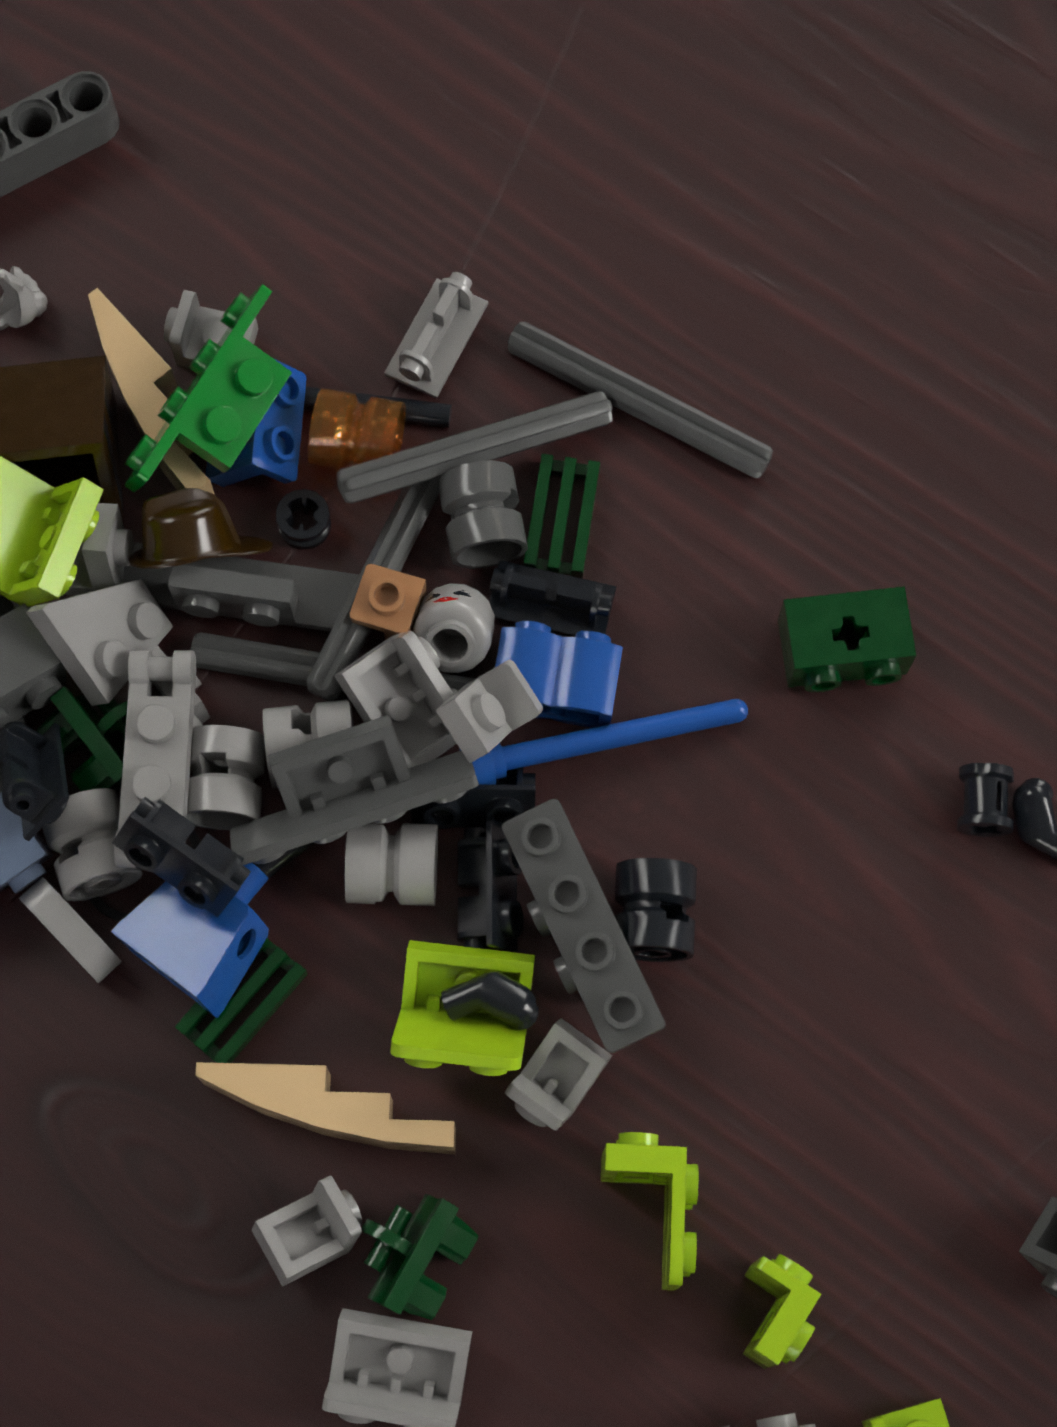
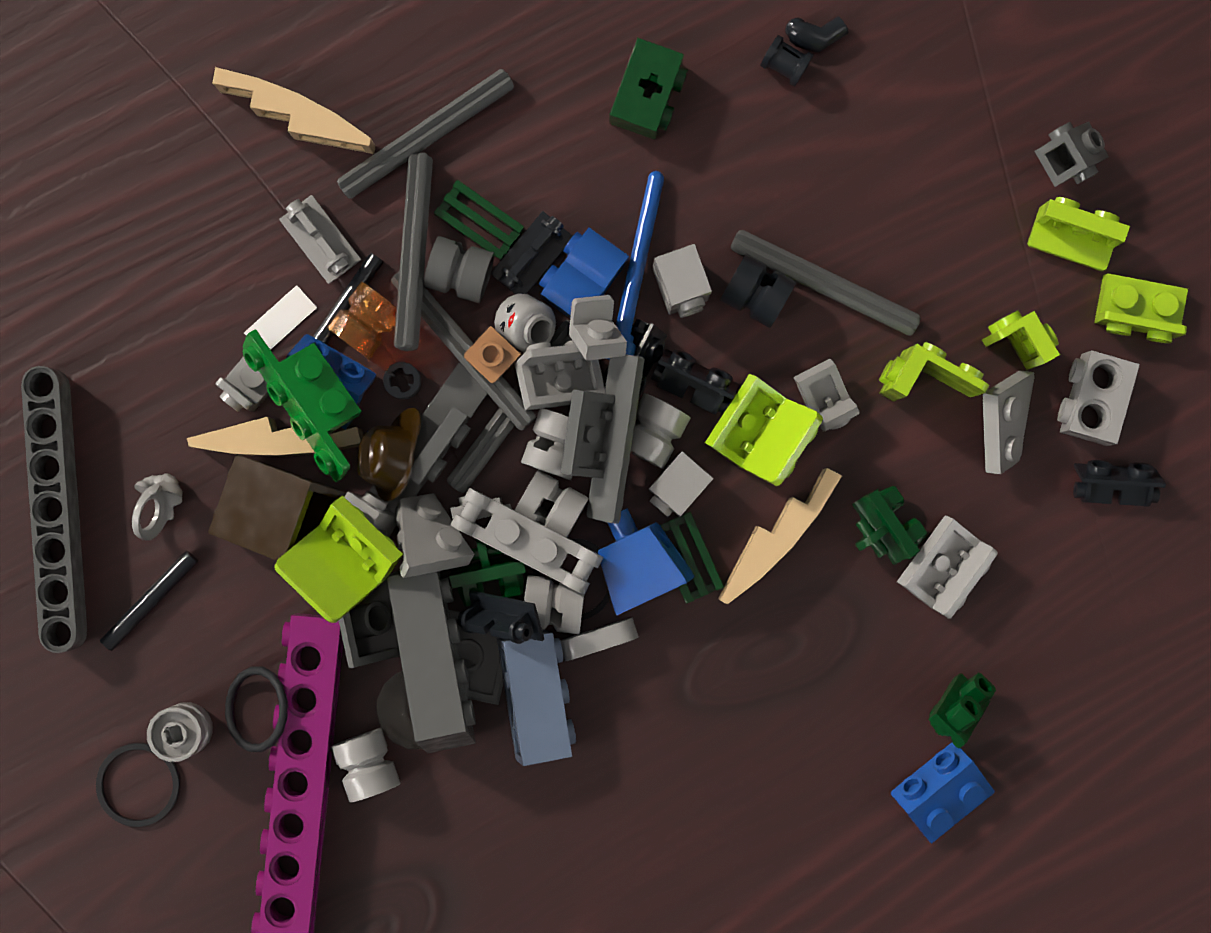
camera: 65 degrees left, 15 degrees up
(155, 843) = (619, 544): black hinge -> none
(309, 1231) = (844, 580): light grey bracket -> none
(310, 342) = (283, 317): none -> white sticker
(334, 935) = (679, 486): none -> light grey brick
(496, 995) = (766, 408): black arm -> none
(579, 241) = (305, 117): none -> tan slope
(583, 926) = (751, 338): dark grey bracket -> none
(613, 796) = (682, 281): none -> light grey brick
(650, 1351) = (1005, 421): none -> light grey wing
(716, 1005) = (827, 283): none -> dark grey axle
(971, 1321) = (1077, 234): none -> lime bracket

